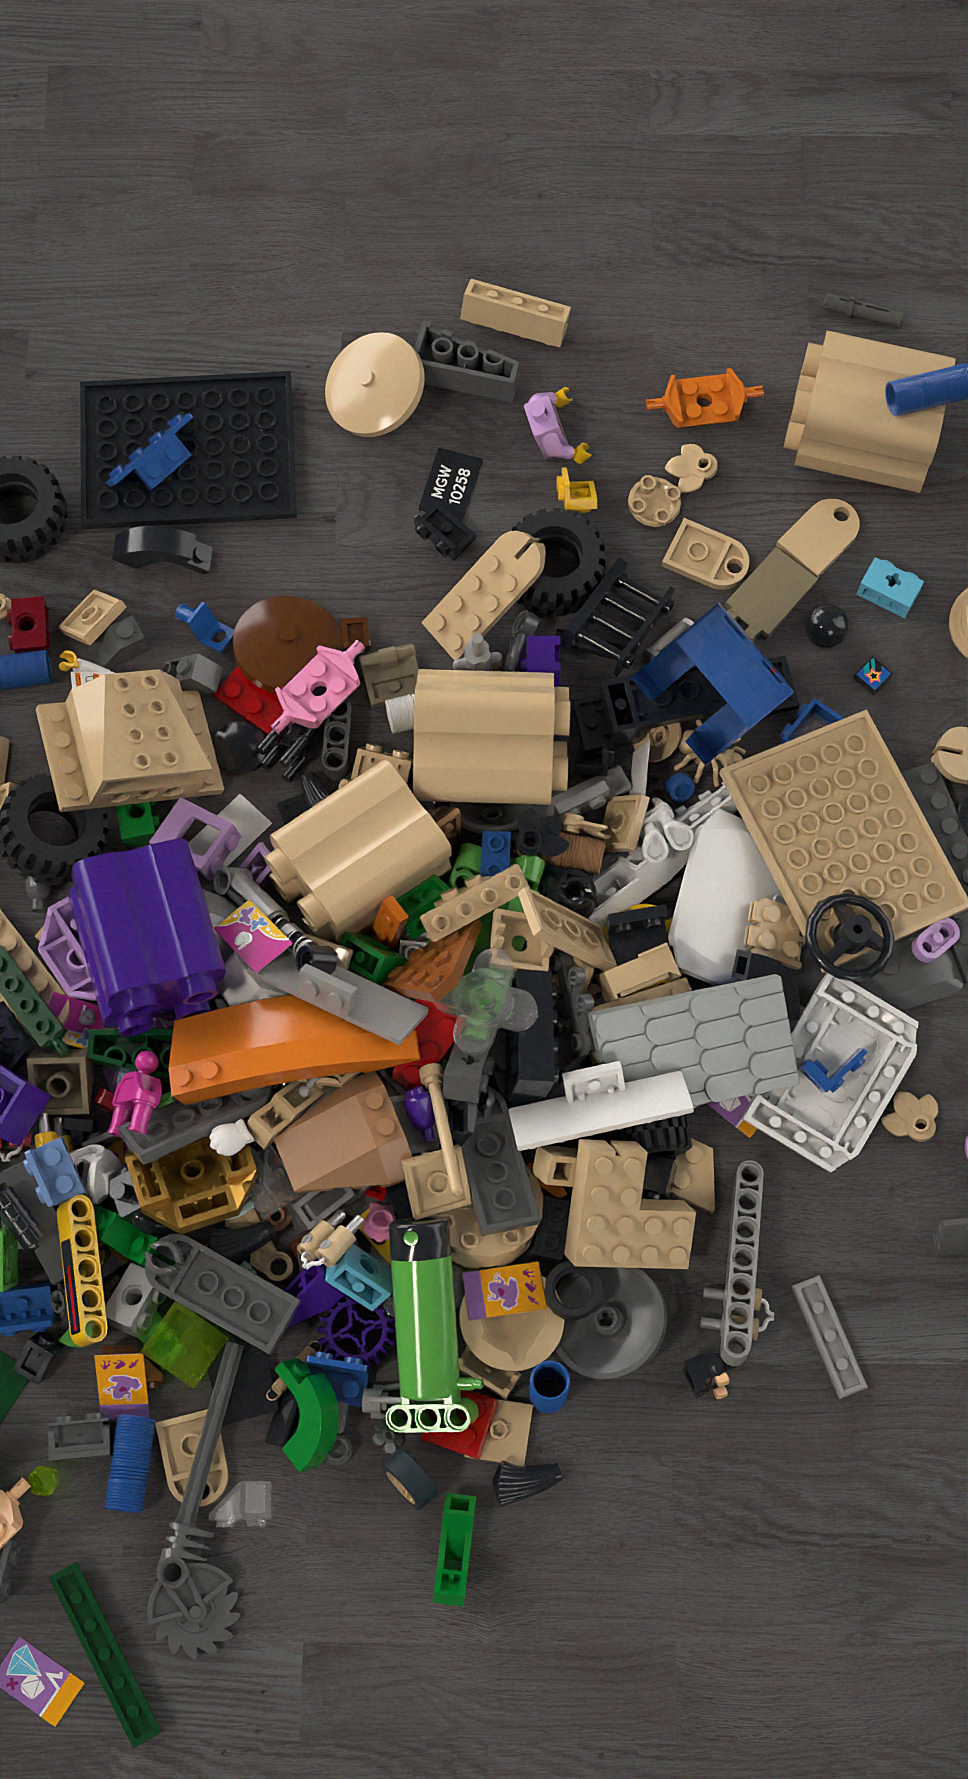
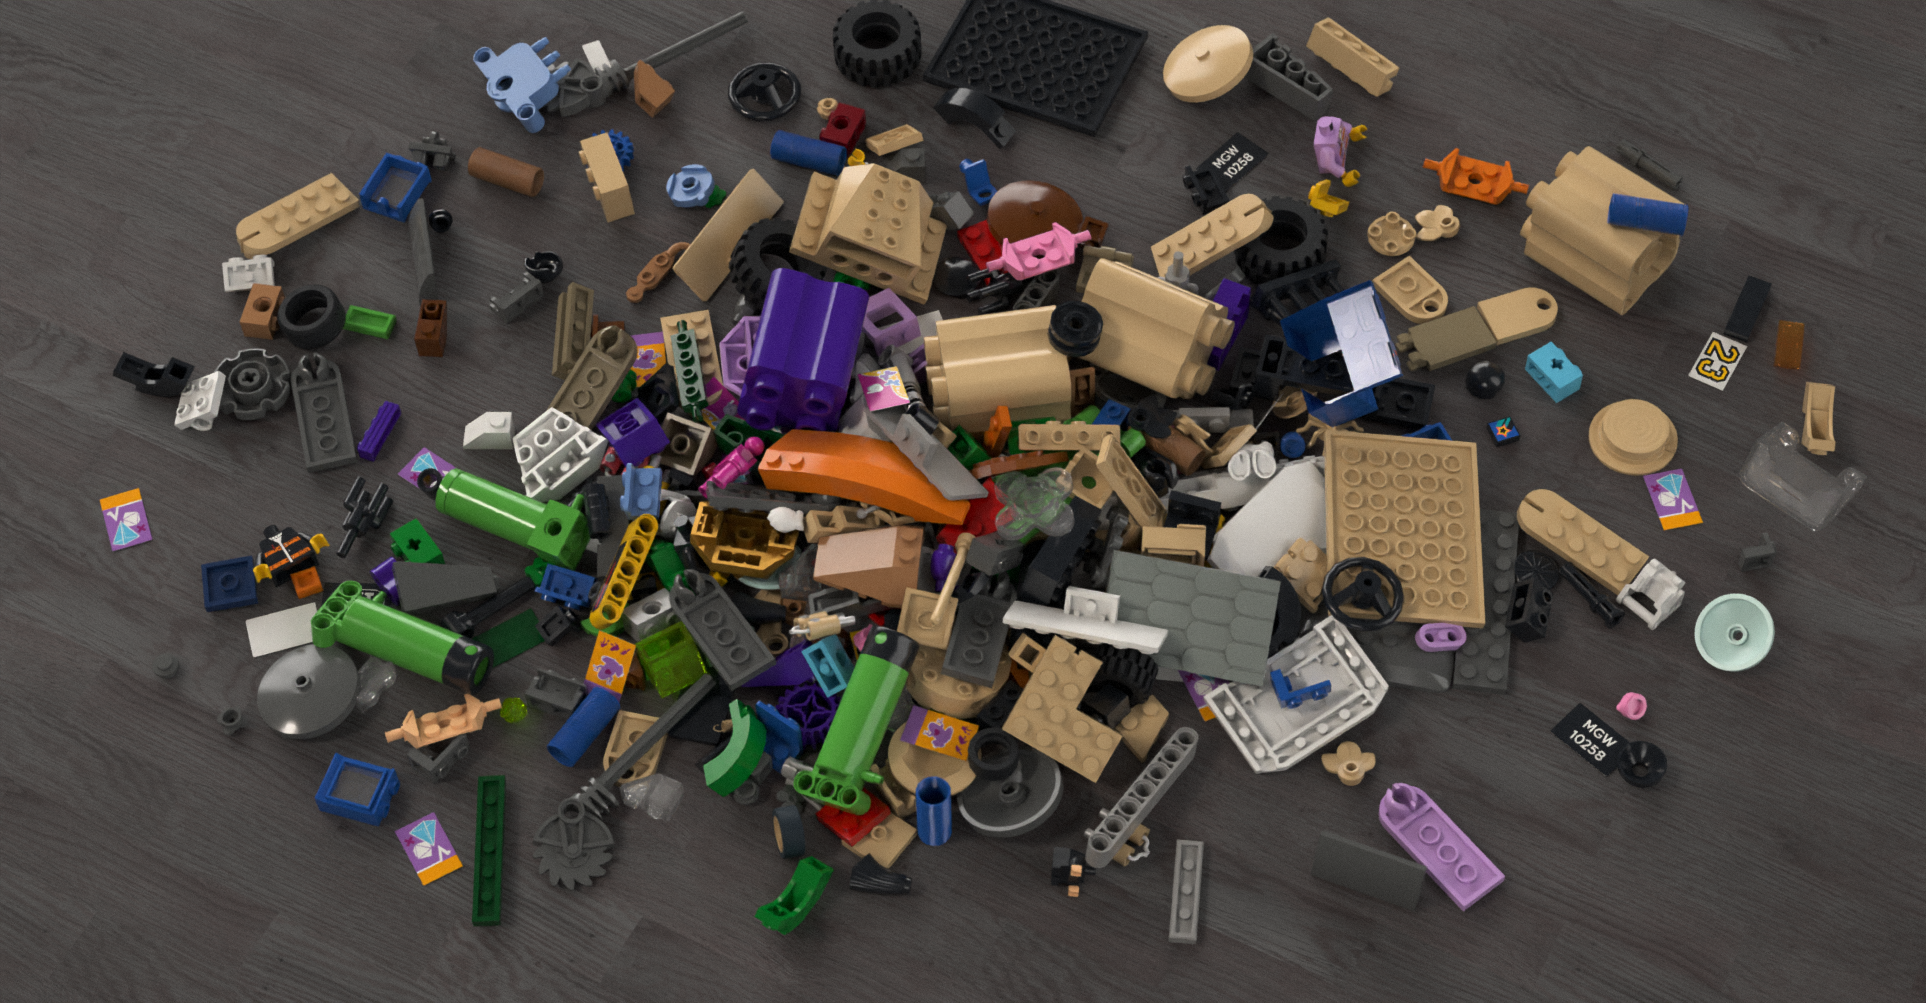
camera: 30 degrees right, 15 degrees down
(158, 459) = (1007, 50): blue bracket -> none
(426, 766) = (1075, 328): none -> black wheel

